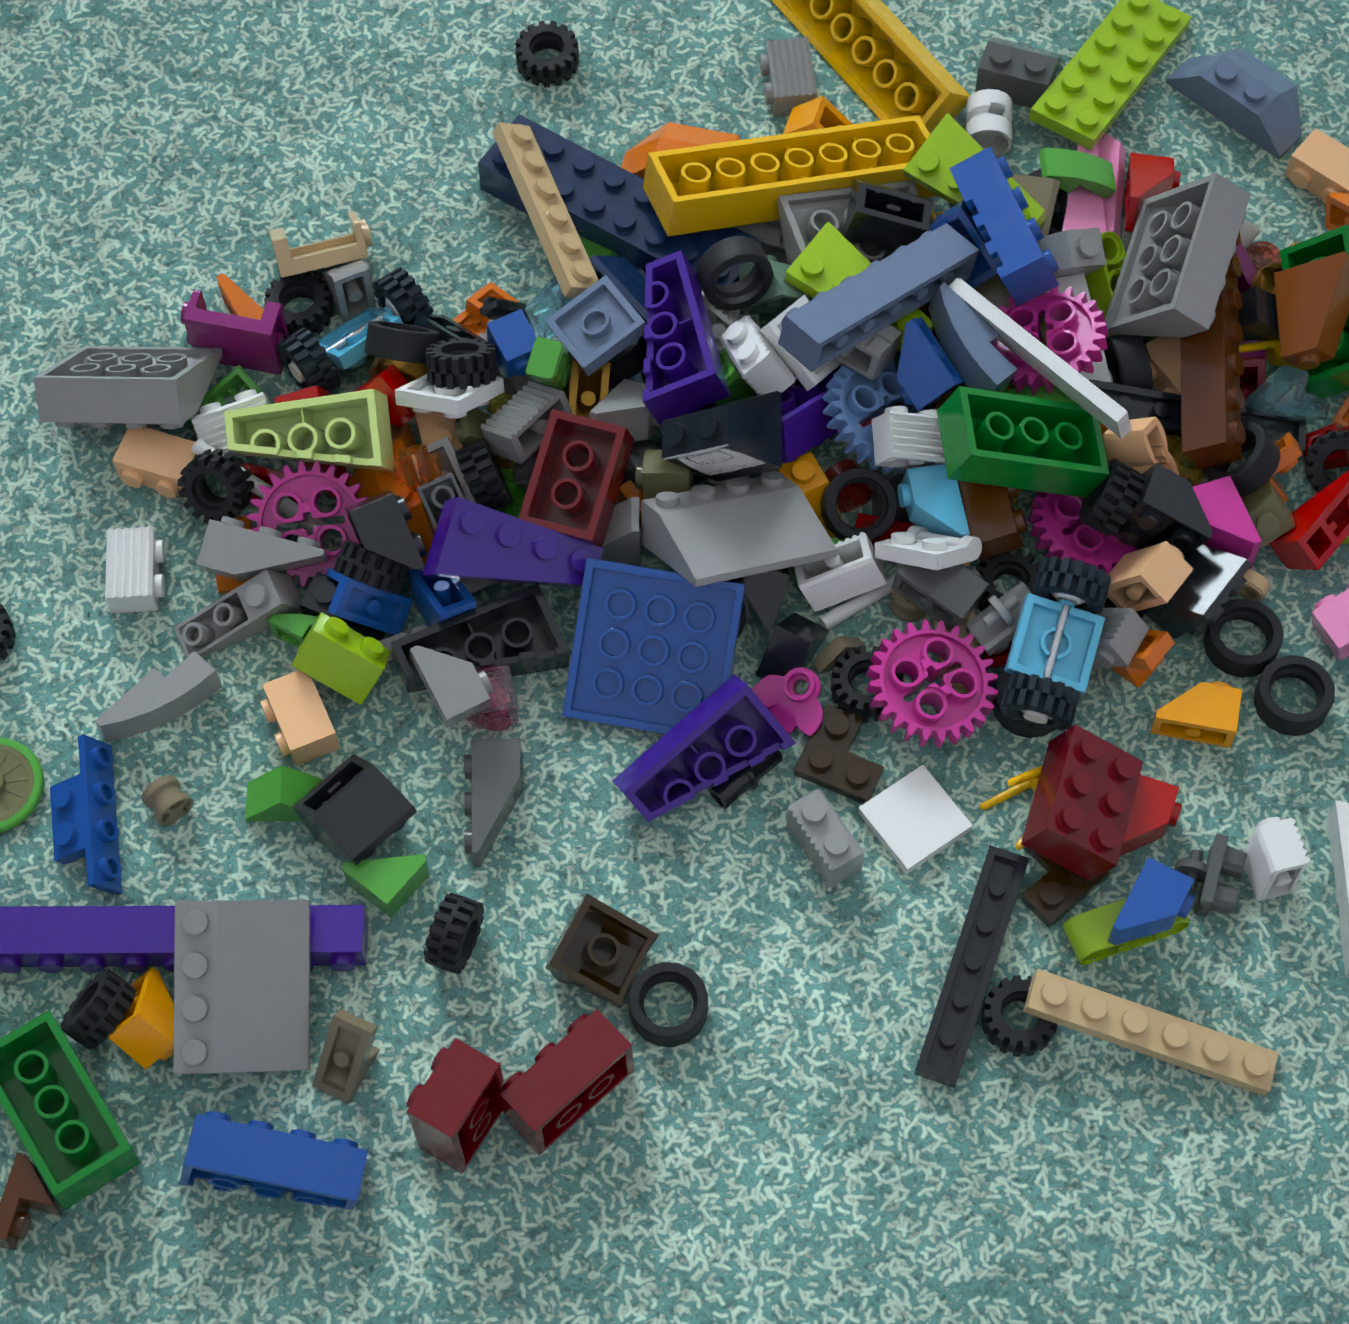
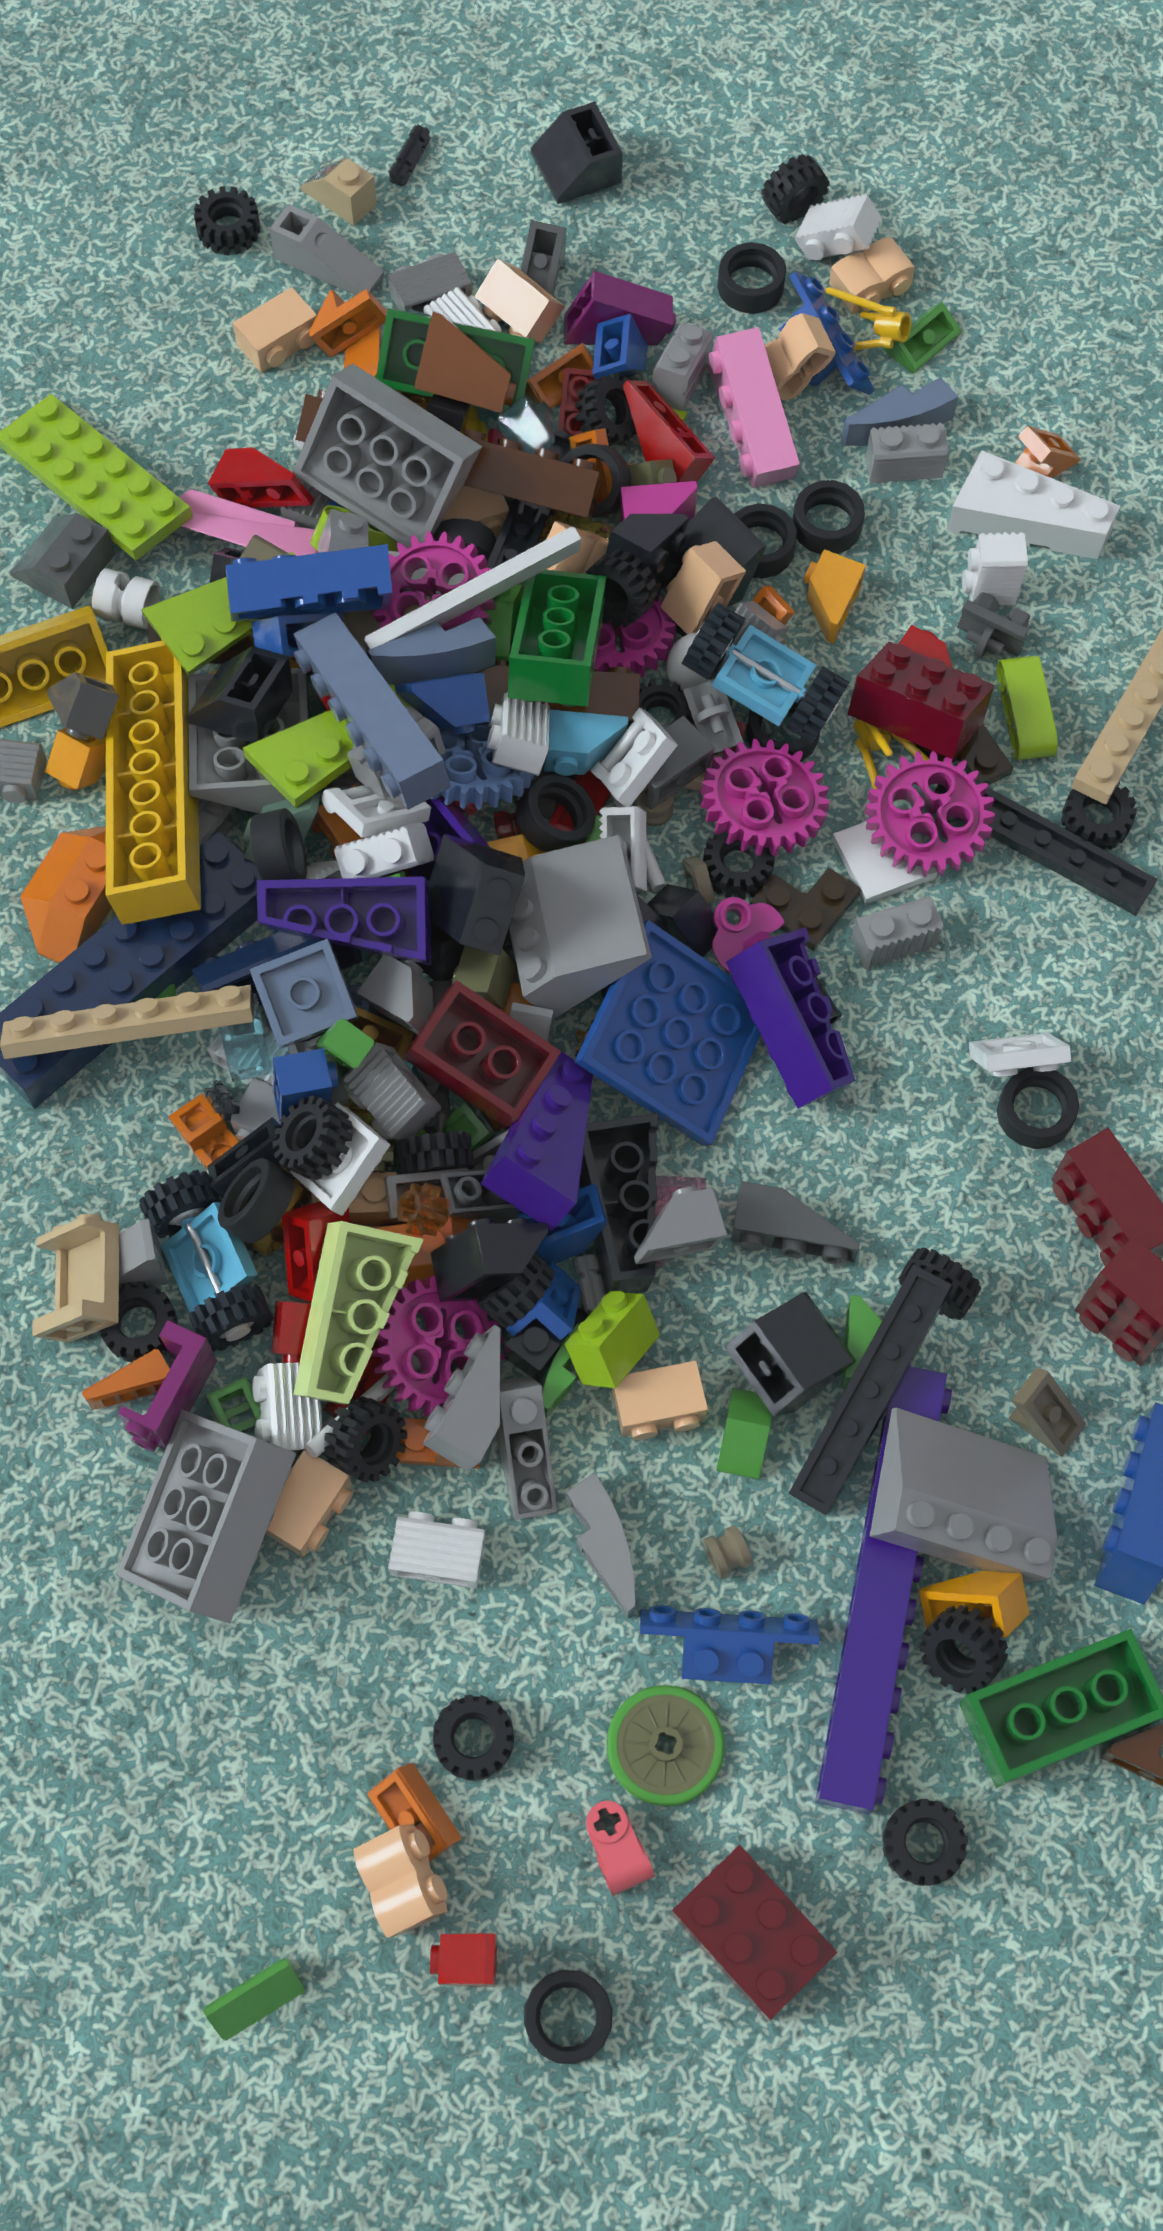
camera: 80 degrees left, 5 degrees up
(332, 883) = (870, 1390): none -> black plate
(600, 950) = (976, 1156): dark brown slope -> none
(714, 967) = (1008, 1054): none -> white plate
(846, 103) = (83, 705): none -> dark grey slope
(986, 865) = (961, 801): none -> dark pink gear
(1078, 169) = (224, 529): bright green slope -> none
(1153, 903) = (1028, 672): blue slope -> none
(1244, 97) = (160, 378): sand blue wedge -> none

